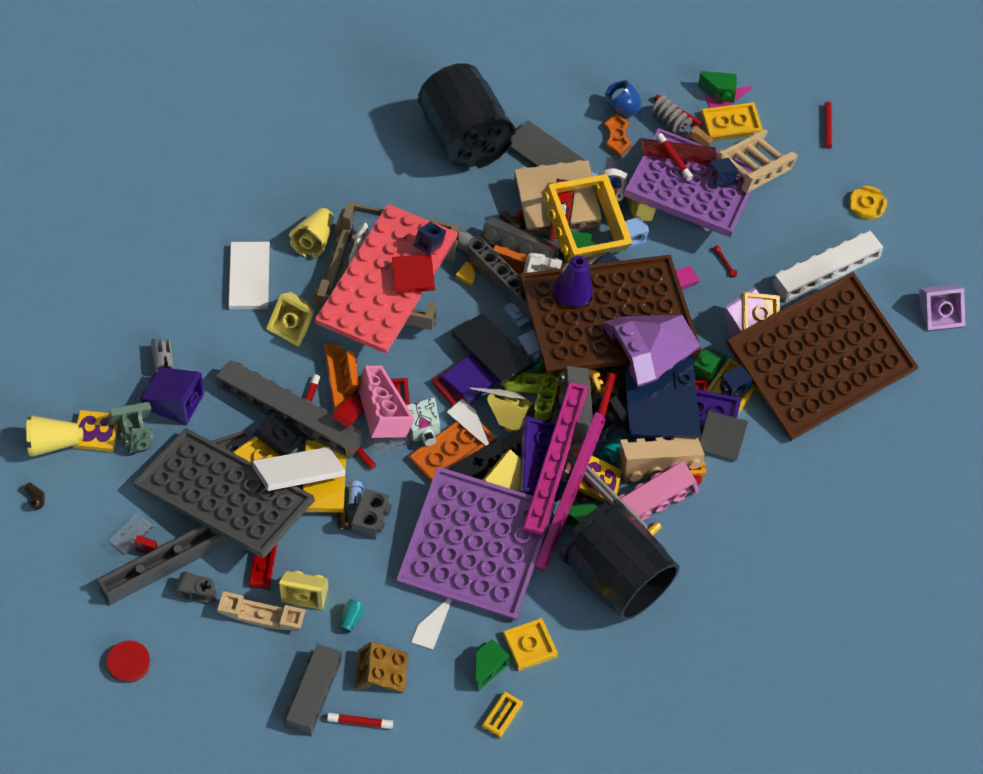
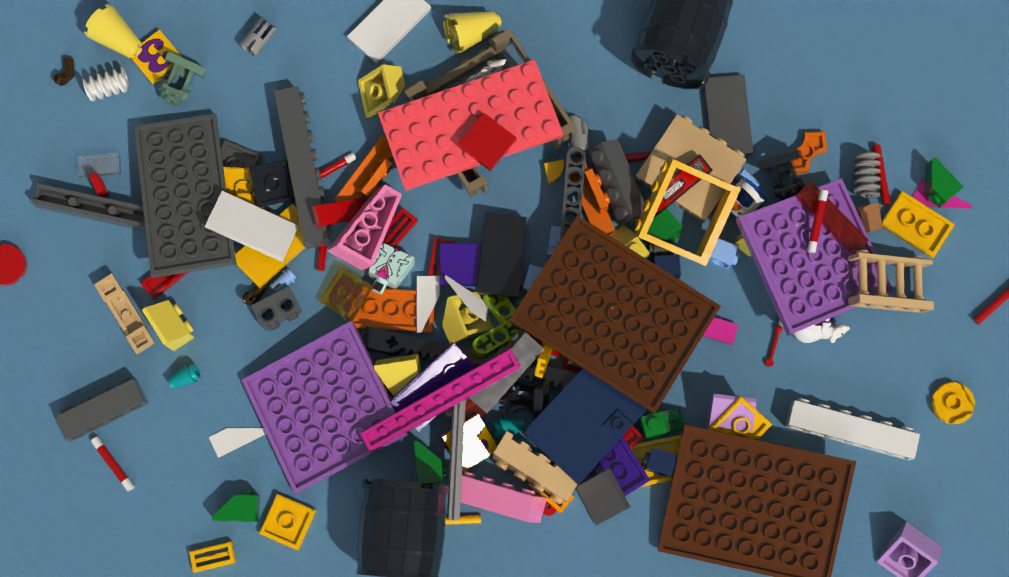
camera: 50 degrees right, 20 degrees up
(78, 474) = (106, 85): none -> white piece
(174, 393) = (232, 77): dark purple slope -> none
(195, 588) = (99, 249): dark grey piece -> none
(381, 667) = (163, 440): pearl gold bracket -> none
(410, 462) = (346, 294): none -> clear yellow tile
(429, 238) = (521, 127): dark blue brick -> none
(517, 222) = (634, 158): dark brown arm -> none
(539, 262) = (608, 220): white cylinder -> none
(570, 492) = (427, 436): dark pink tile -> none
(574, 283) = (603, 268): dark purple cone -> none
(606, 394) = (530, 386): red bar -> none
(612, 149) = (782, 164): none -> black tile
(625, 104) = (843, 132): blue piece -> none
(652, 343) = (618, 372): medium lavender wedge -> none
(725, 171) = (846, 271): dark blue panel -> none
(742, 228) = (821, 330): none -> white animal

